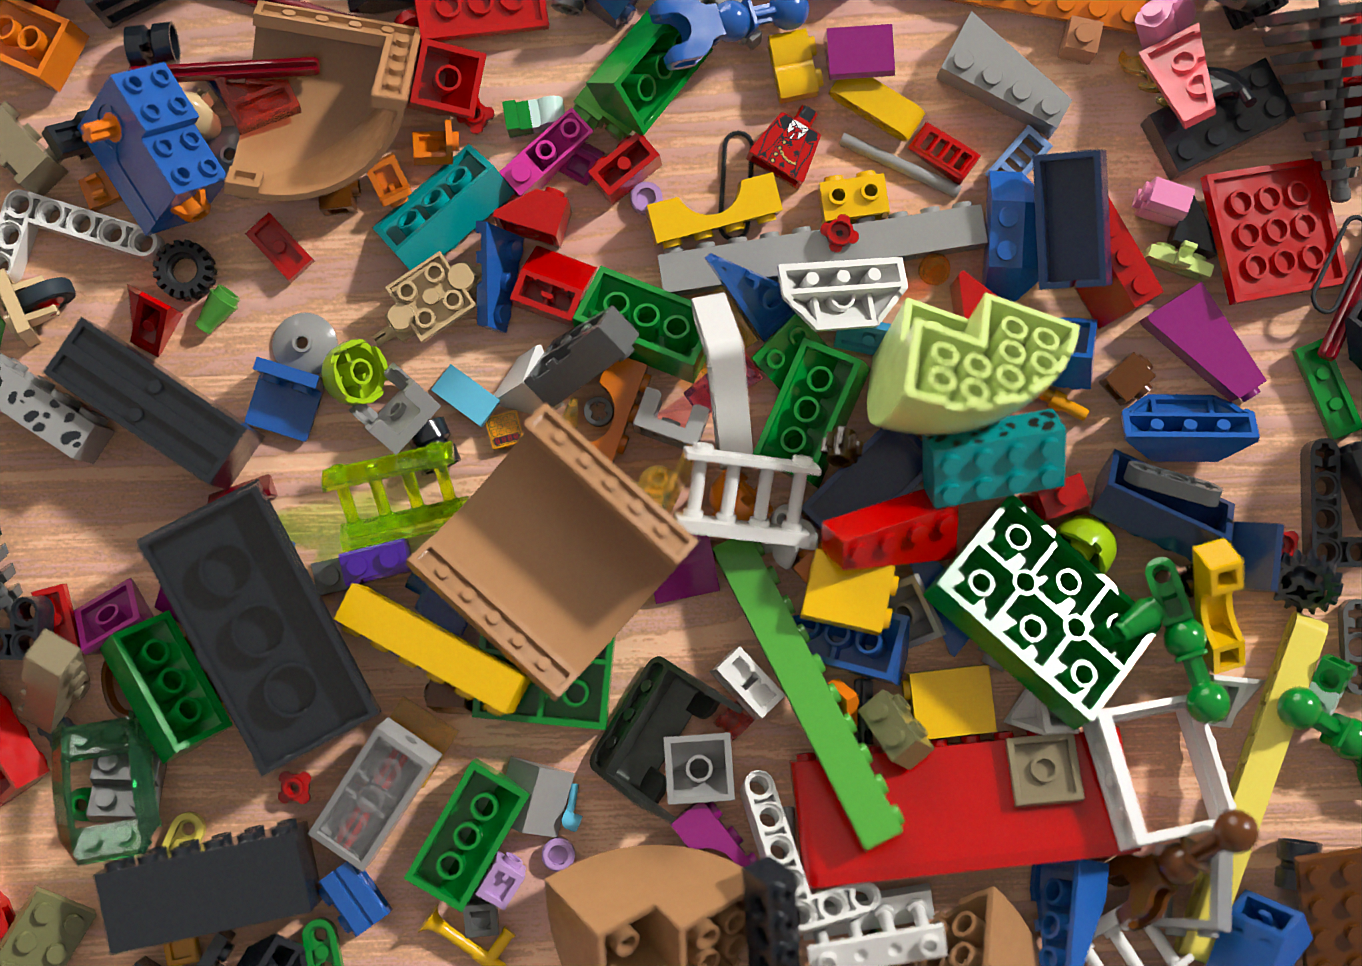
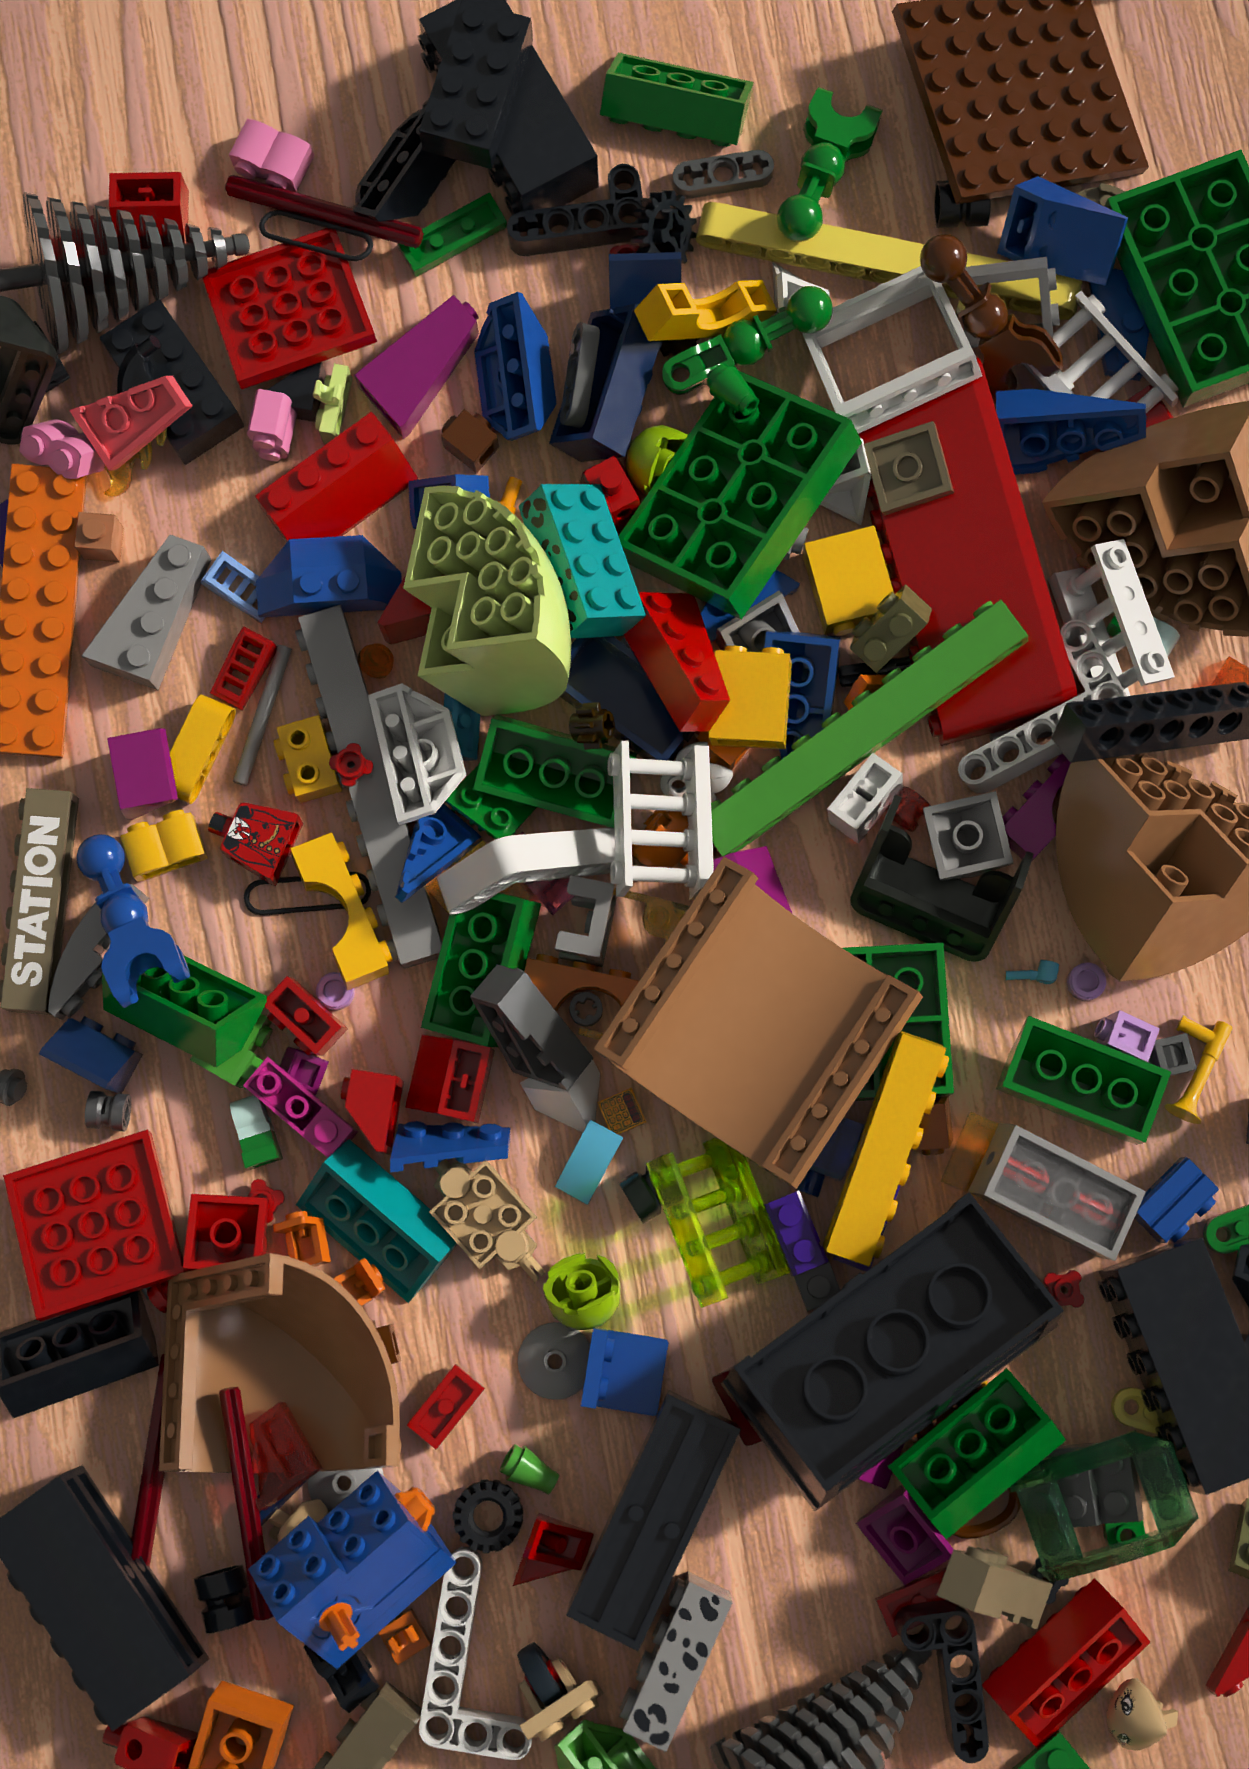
camera: 100 degrees left, 5 degrees down
(401, 415) = (622, 1228): light grey panel -> none
(547, 799) = (1015, 1001): light grey slope -> none
(1072, 219) = (306, 512): dark blue piece -> none
(1331, 681) = (763, 192): green leg -> none

